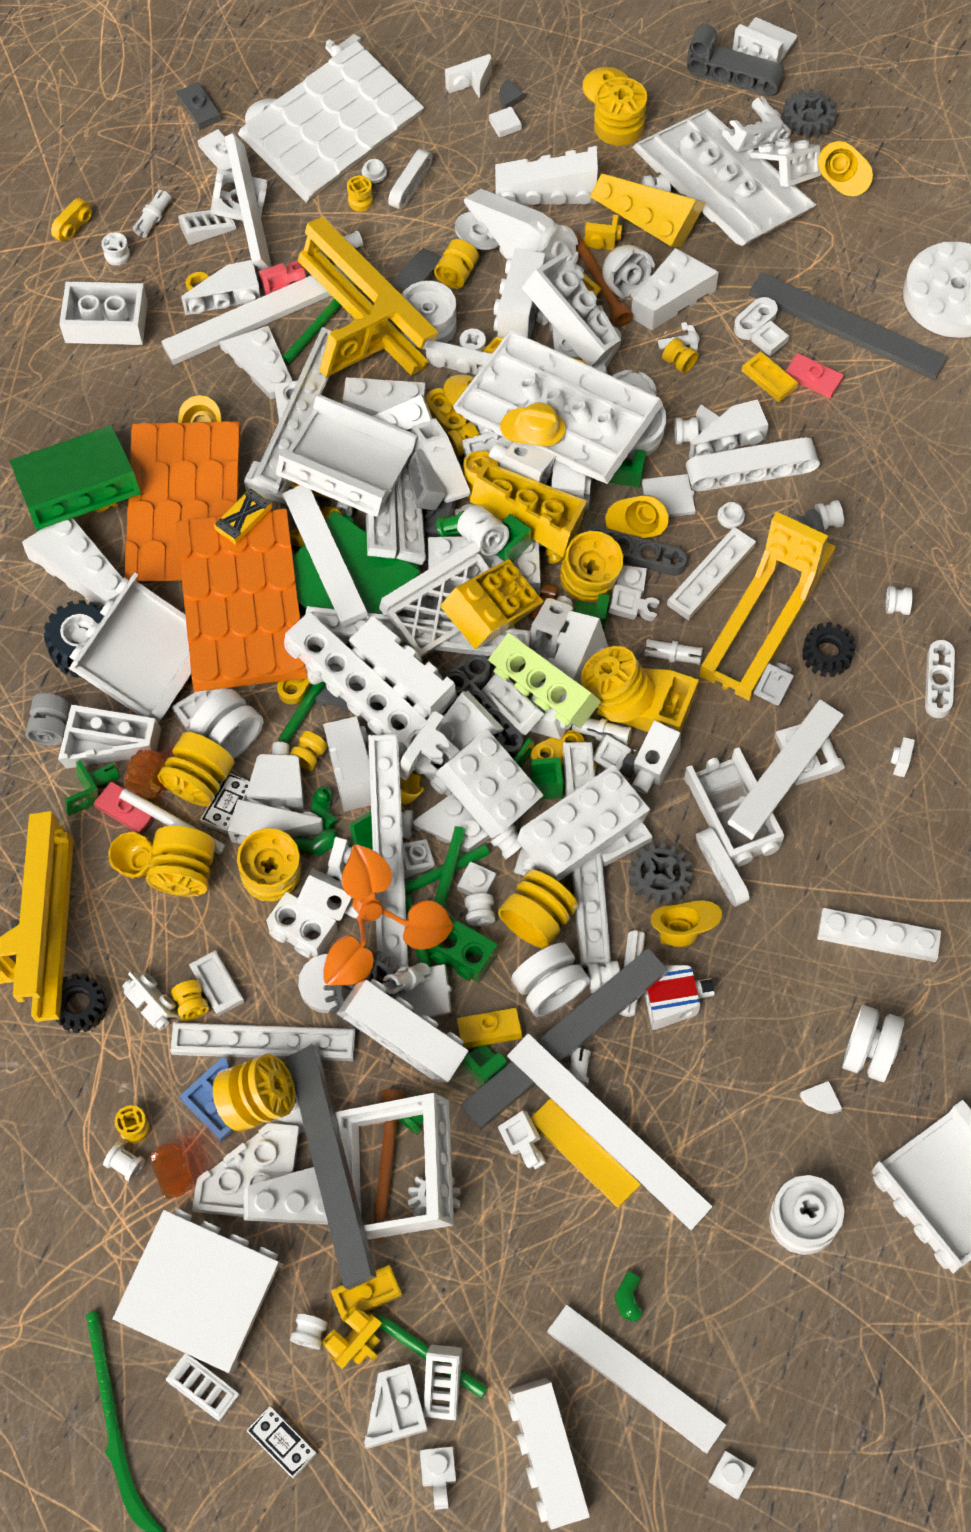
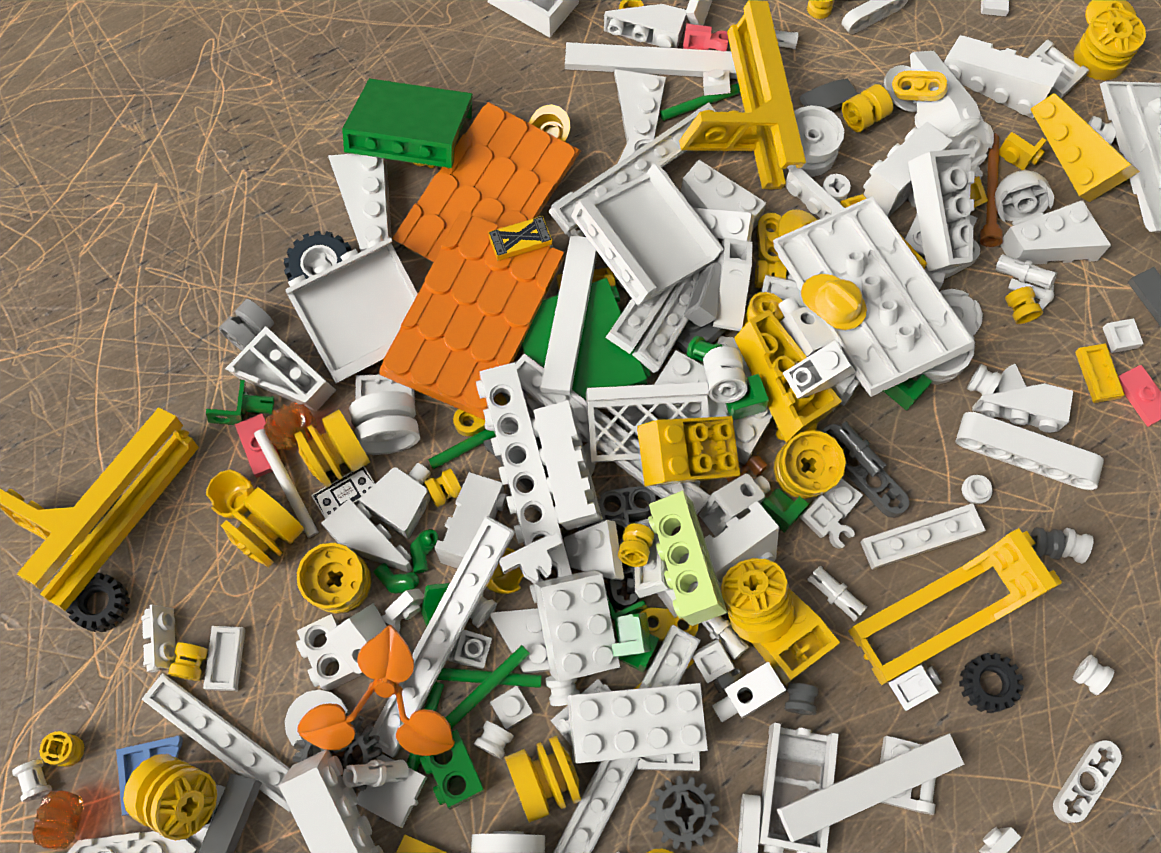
camera: 30 degrees right, 5 degrees up
(315, 307) = (716, 82): none -> white plate
(489, 220) = (920, 84): none -> yellow plate
(497, 697) = (636, 545): none -> yellow wheel
(537, 764) = (632, 635): none -> panel
(556, 484) = (819, 371): none -> white slope
(605, 150) = (1070, 74): none -> white plate
(624, 534) = (859, 449): none -> dark grey pin
(638, 516) = (890, 440): yellow piece -> none
(665, 328) = (1026, 271): none -> white pin
(672, 492) = (928, 435): white piece -> none
(696, 742) = (801, 699): none -> dark grey wheel
(753, 319) = (1117, 307): white plate -> none

